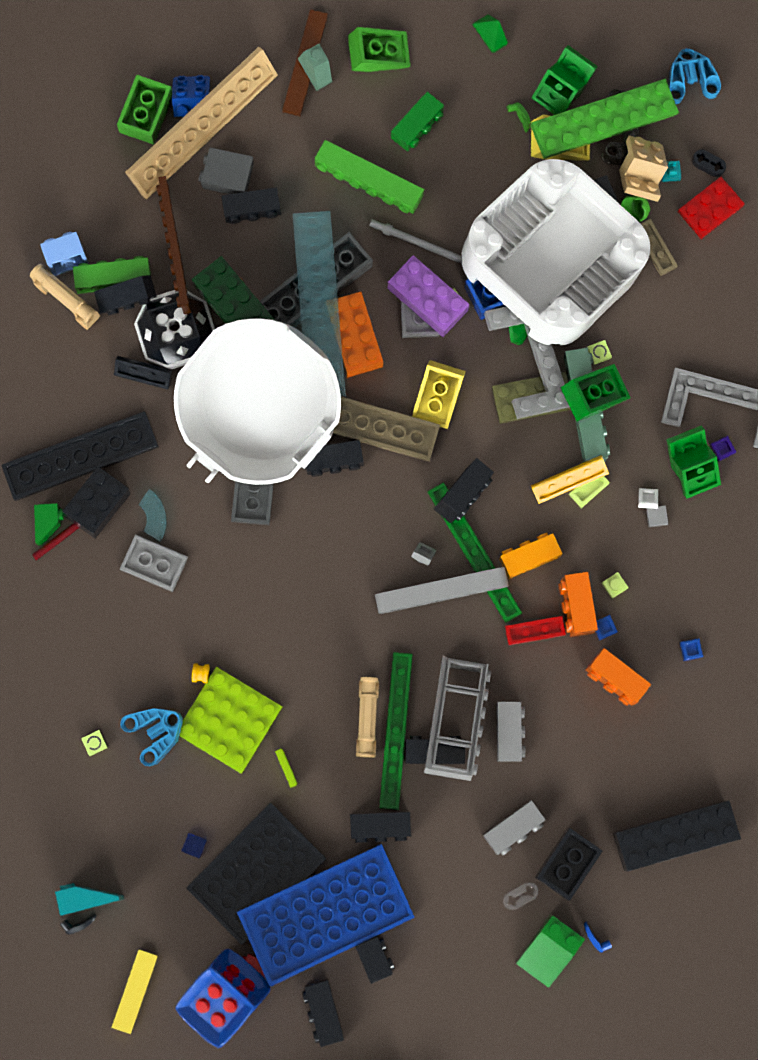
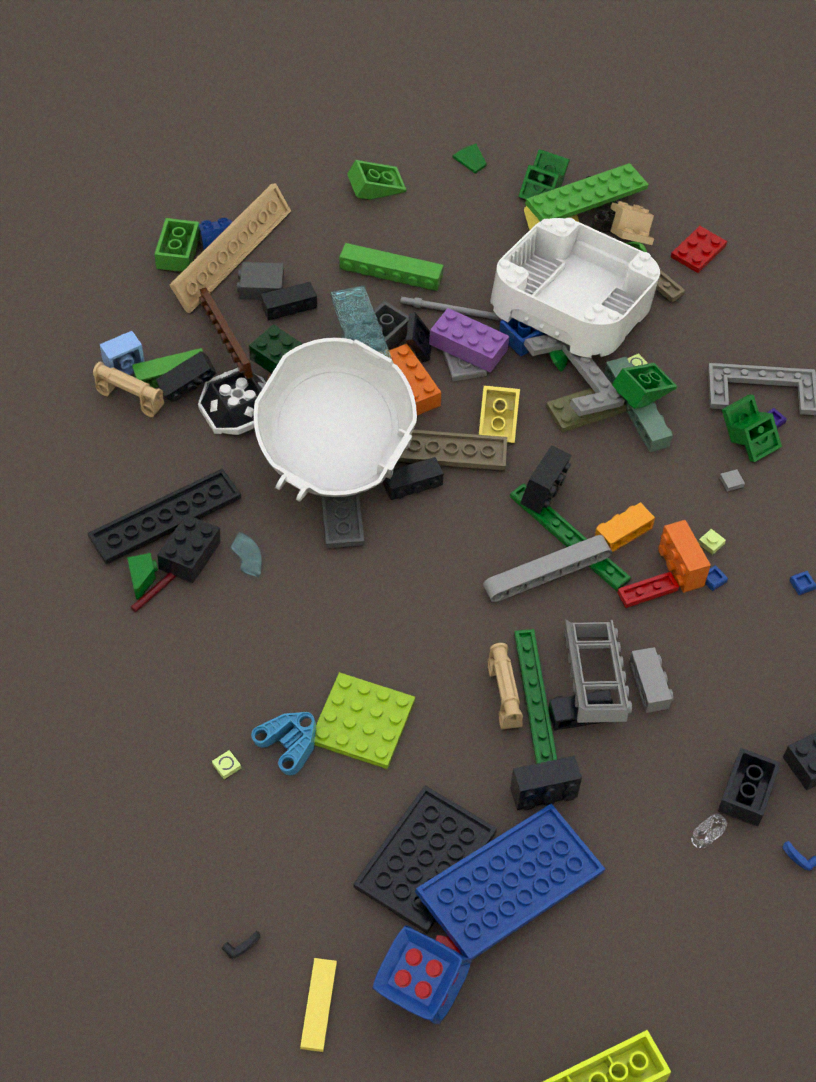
camera: 10 degrees left, 25 degrees down
(78, 898) = (248, 909): teal slope -> none
(142, 372) = (214, 439): black plate -> none
(154, 563) = (256, 595): light grey tile -> none
(194, 845) = (352, 844): clear blue tile -> none
(200, 673) = (324, 680): yellow wheel -> none
(286, 768) = (433, 751): lime tile -> none
(300, 81) = (313, 199): reddish brown tile -> none
(316, 66) = (324, 195): sand green slope -> none
(323, 1013) = (534, 985): black brick -> none
(374, 959) = (574, 919): black brick -> none
(376, 282) = (418, 337): none -> black plate
(417, 122) = (423, 223): green brick -> none
(423, 553) = (521, 543): light grey plate -> none
(514, 828) = (682, 766): light grey brick -> none
(521, 113) = (513, 207): bright green piece -> none
(550, 950) = (757, 875): slope -> none
(570, 479) = (641, 460): yellow tile -> none
(588, 491) = (661, 468): yellowish green tile -> none
(617, 677) = (742, 610): orange brick -> none
(648, 498) = (719, 466): white tile -> none
(673, 172) = (657, 228): teal tile -> none
(706, 74) = (653, 156): dark azure connector -> none
(708, 163) = (685, 219): black beam -> none

